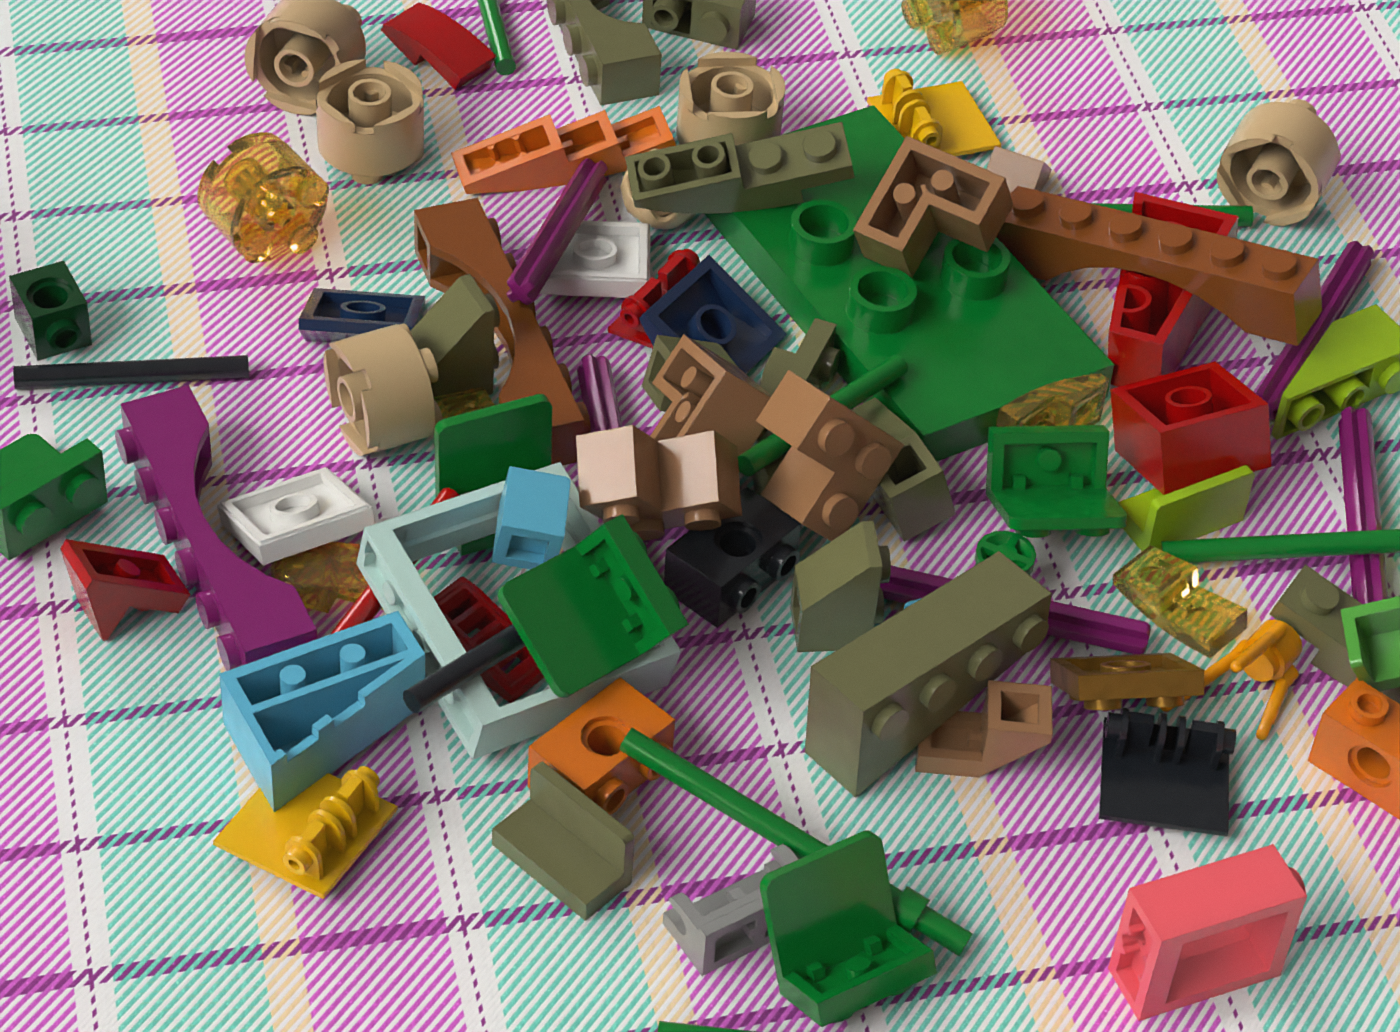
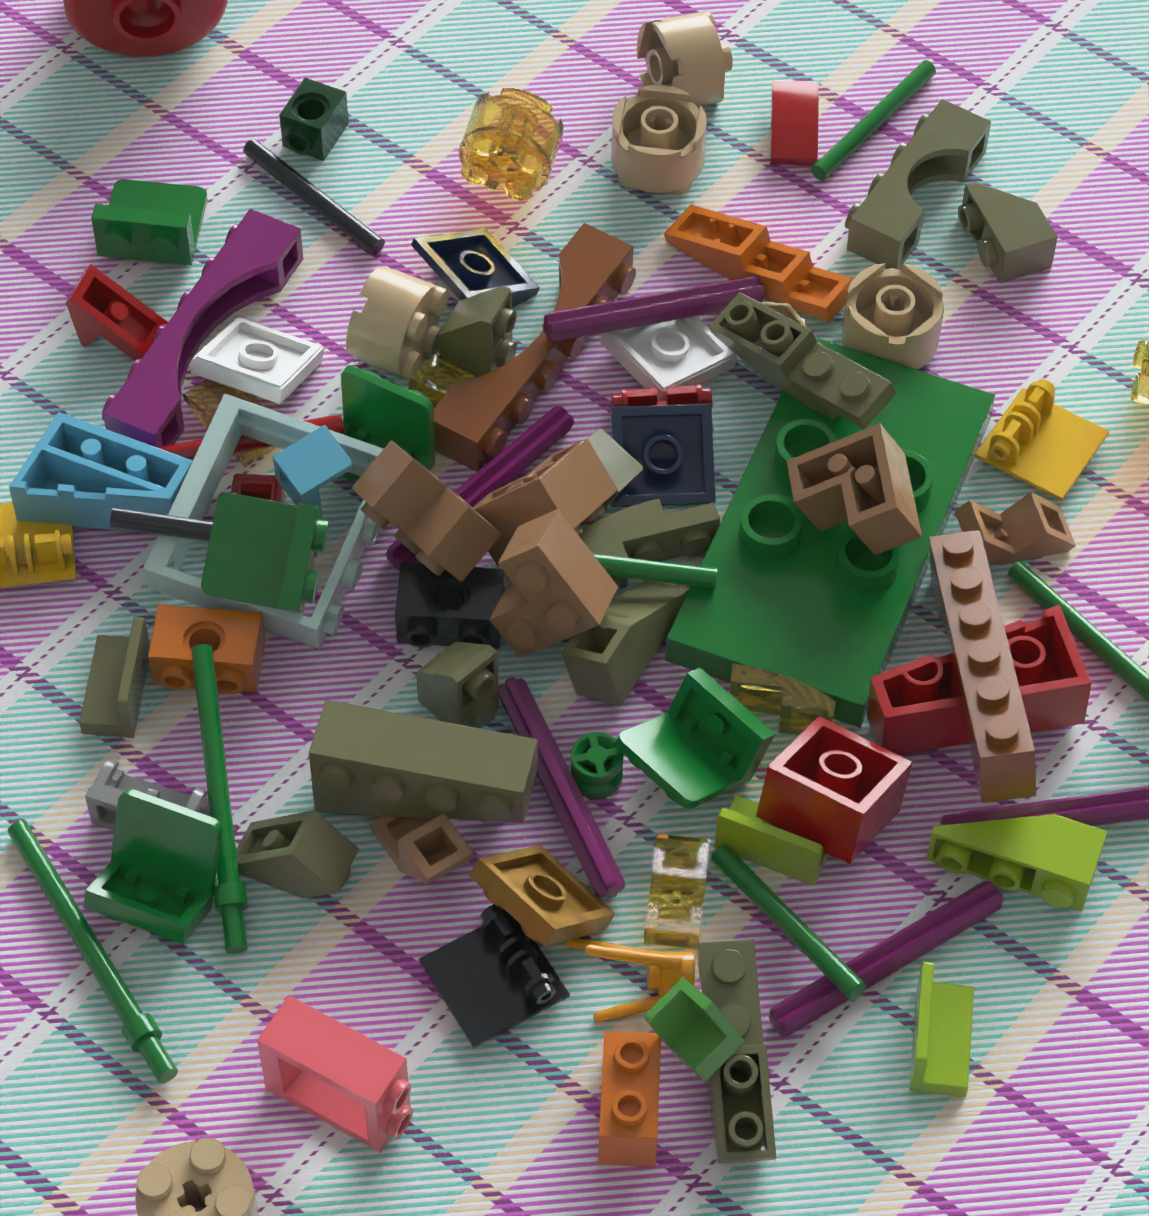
camera: 55 degrees right, 10 degrees up
(920, 819) = (297, 854): none -> olive slope

